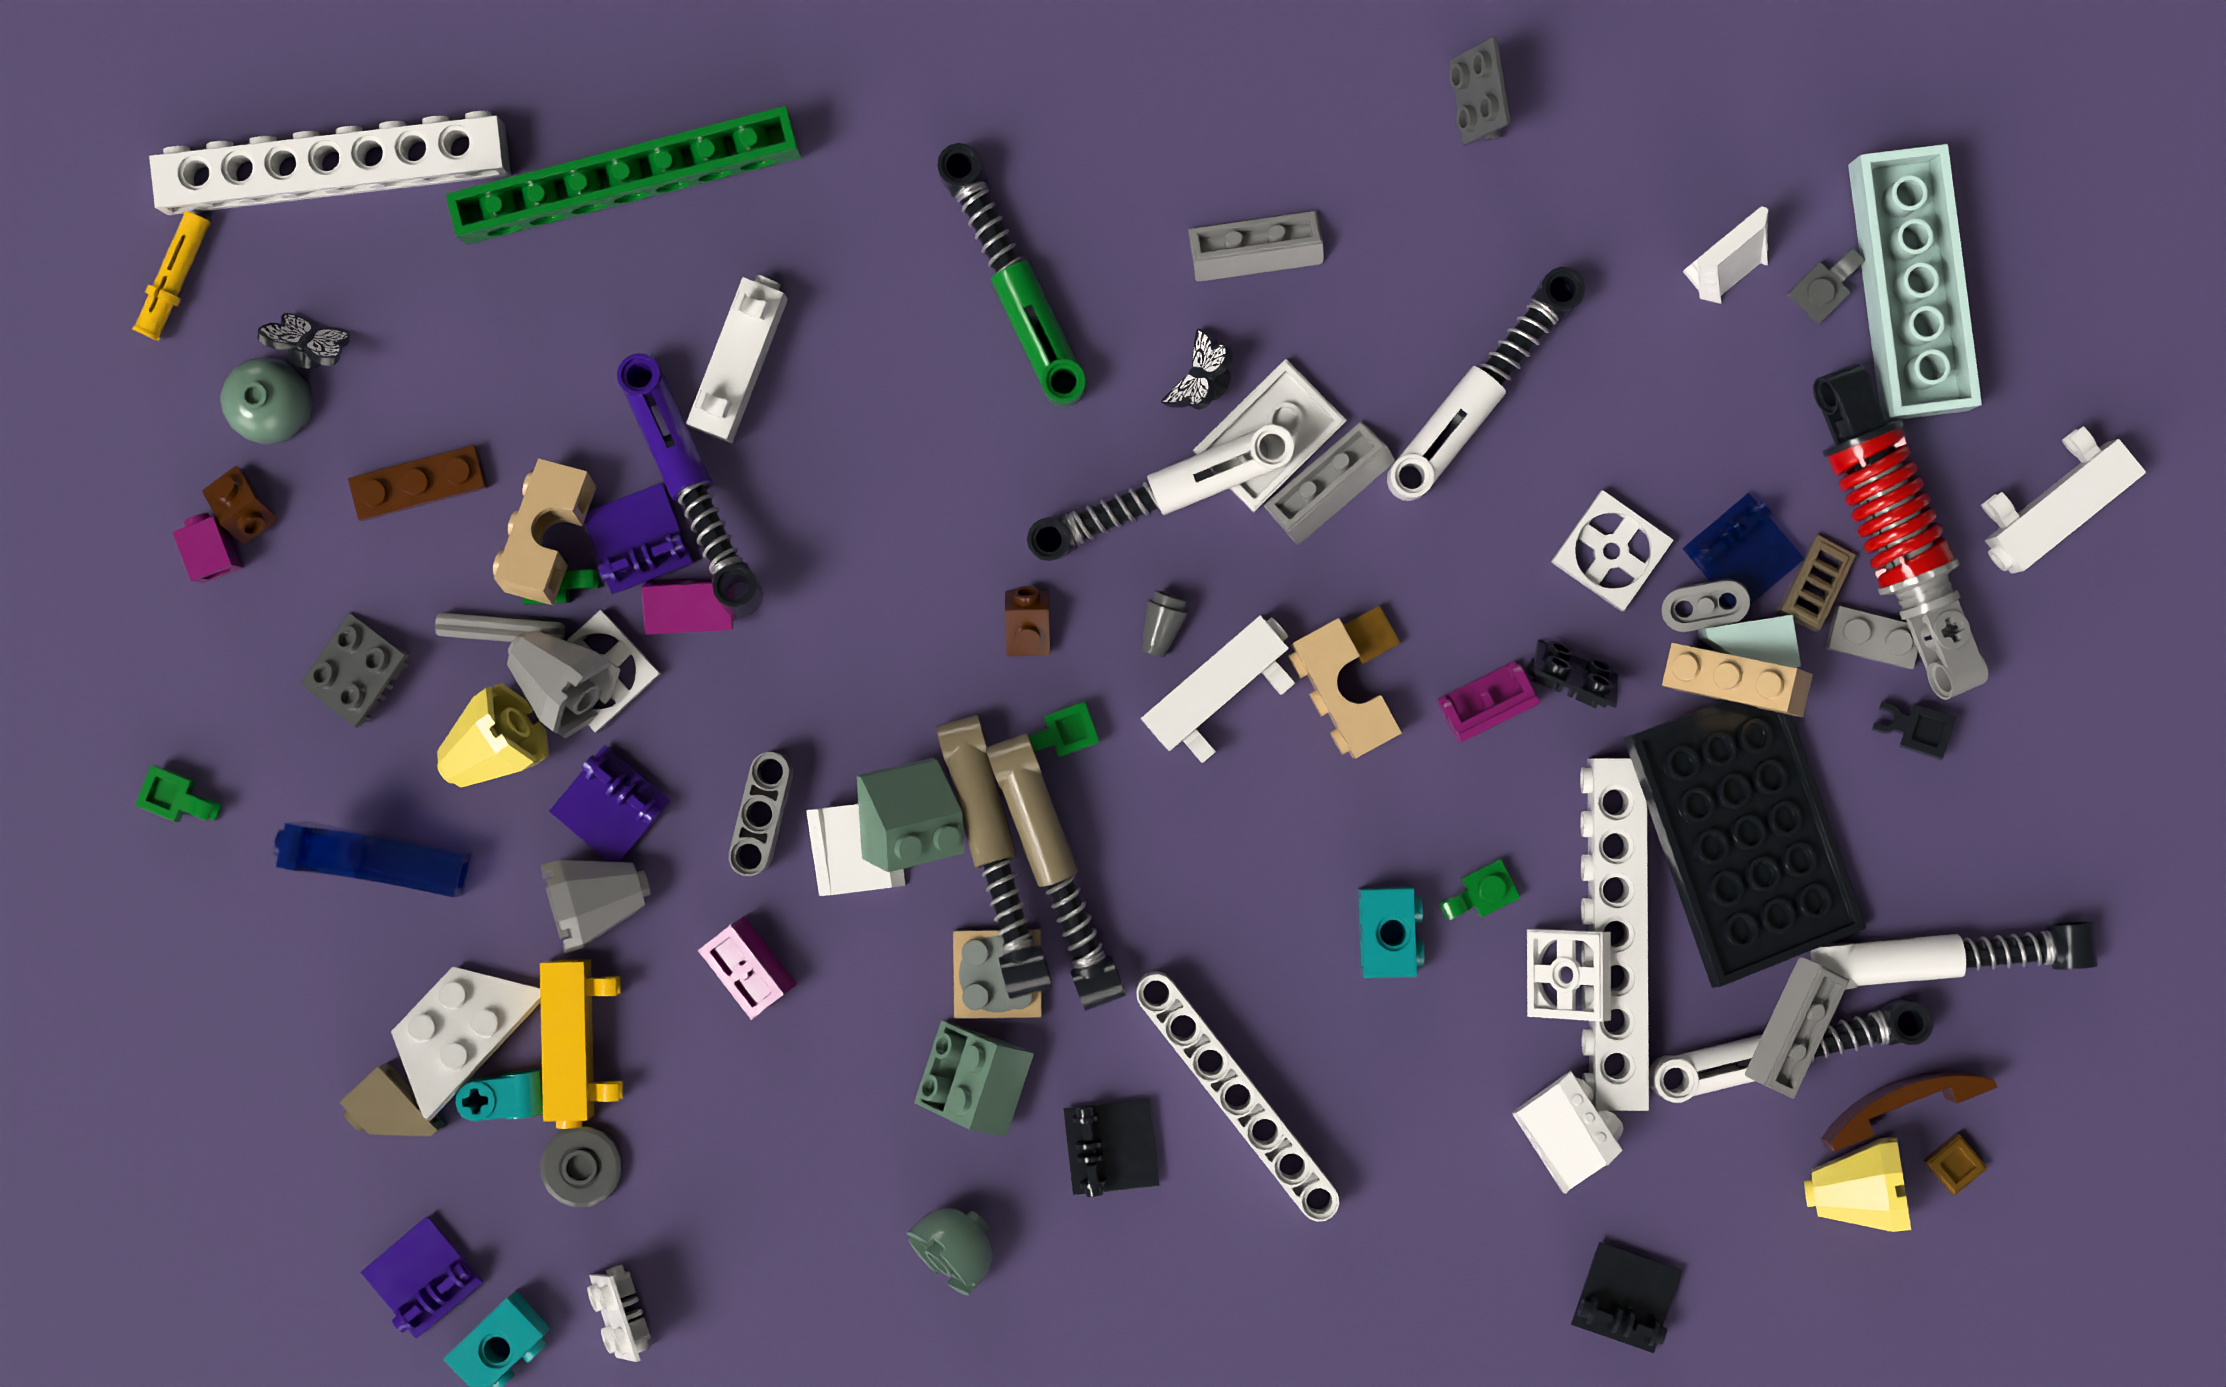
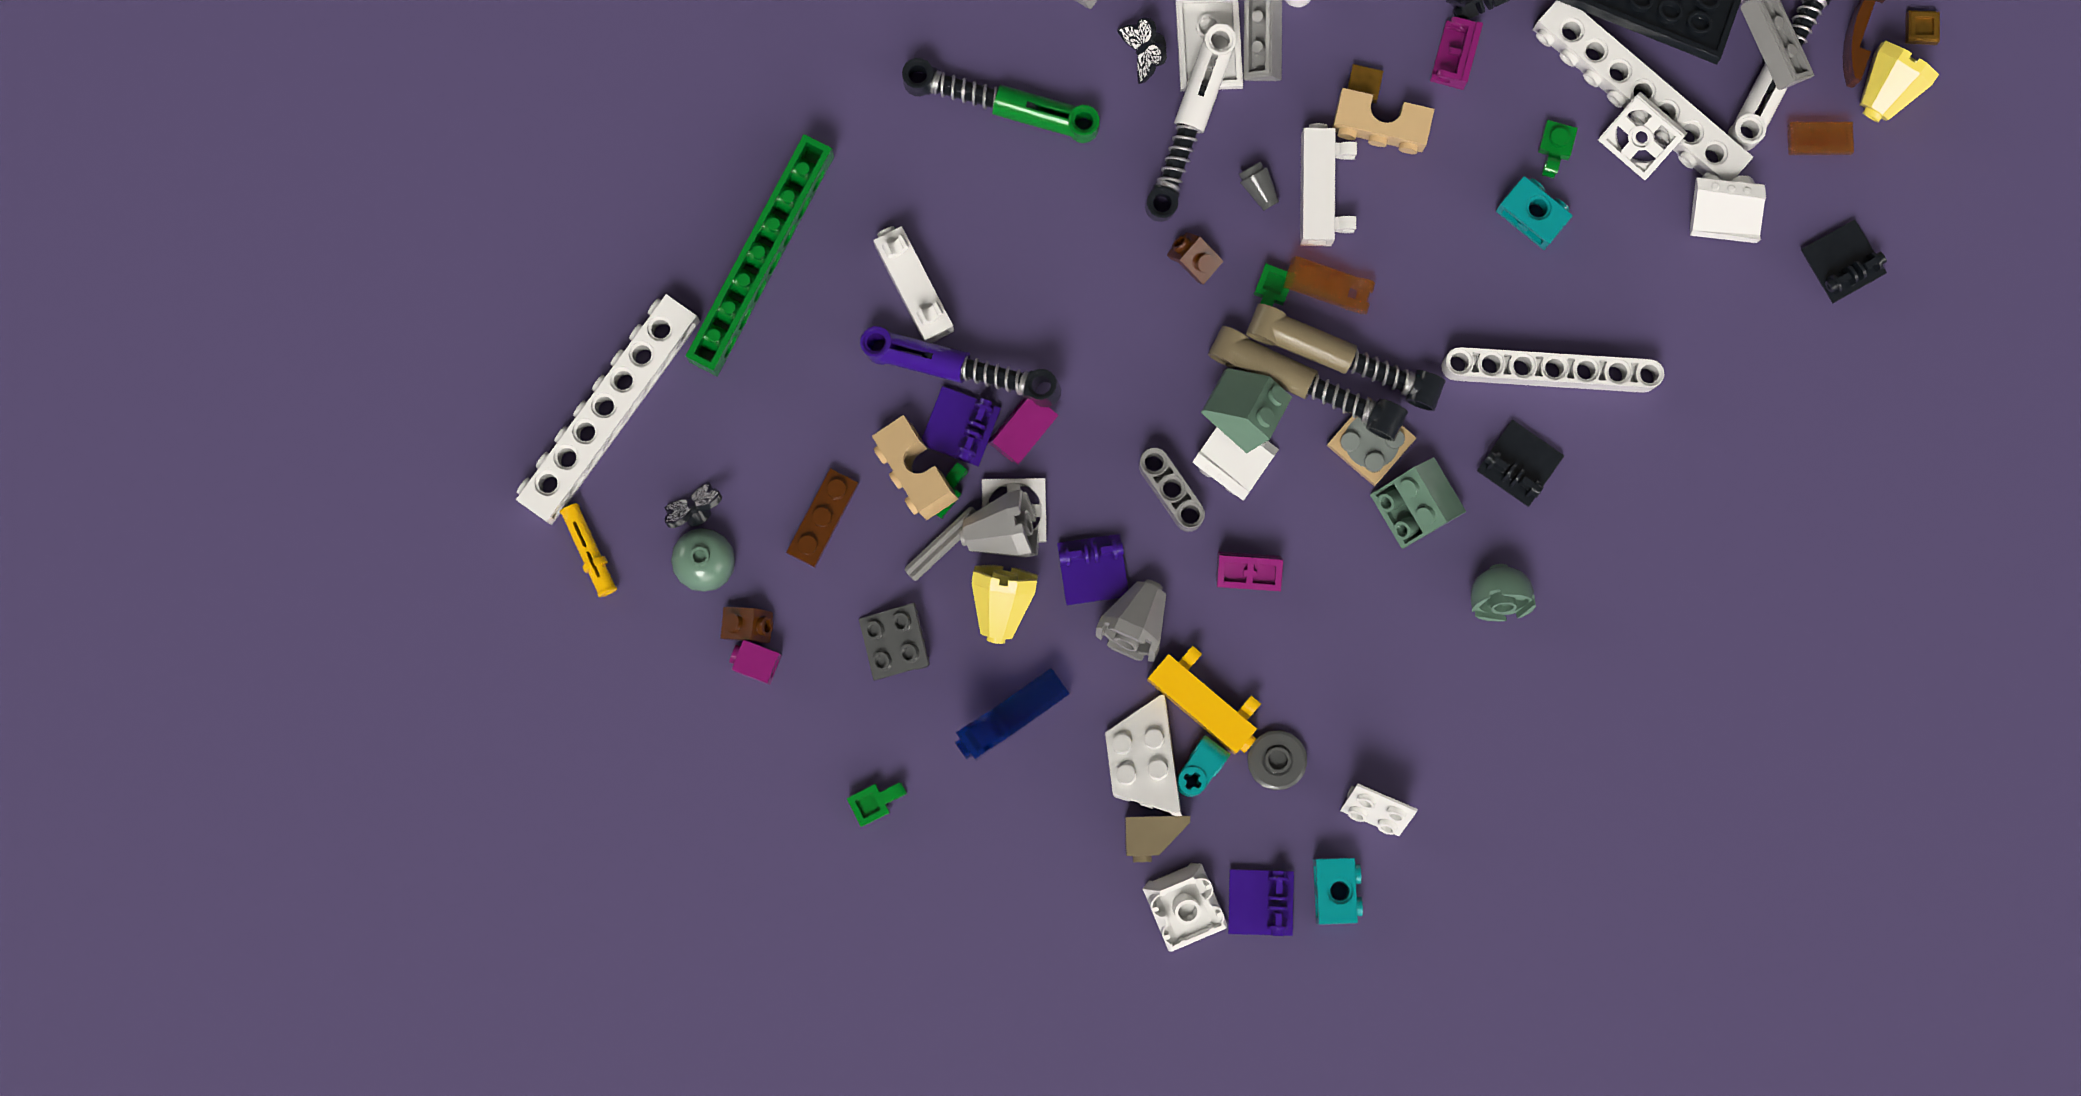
camera: 55 degrees left, 5 degrees down
(348, 1203) = (1185, 906): none -> white slope
(1119, 785) = (1328, 285): none -> clear orange plate
(1736, 1161) = (1820, 138): none -> clear orange plate

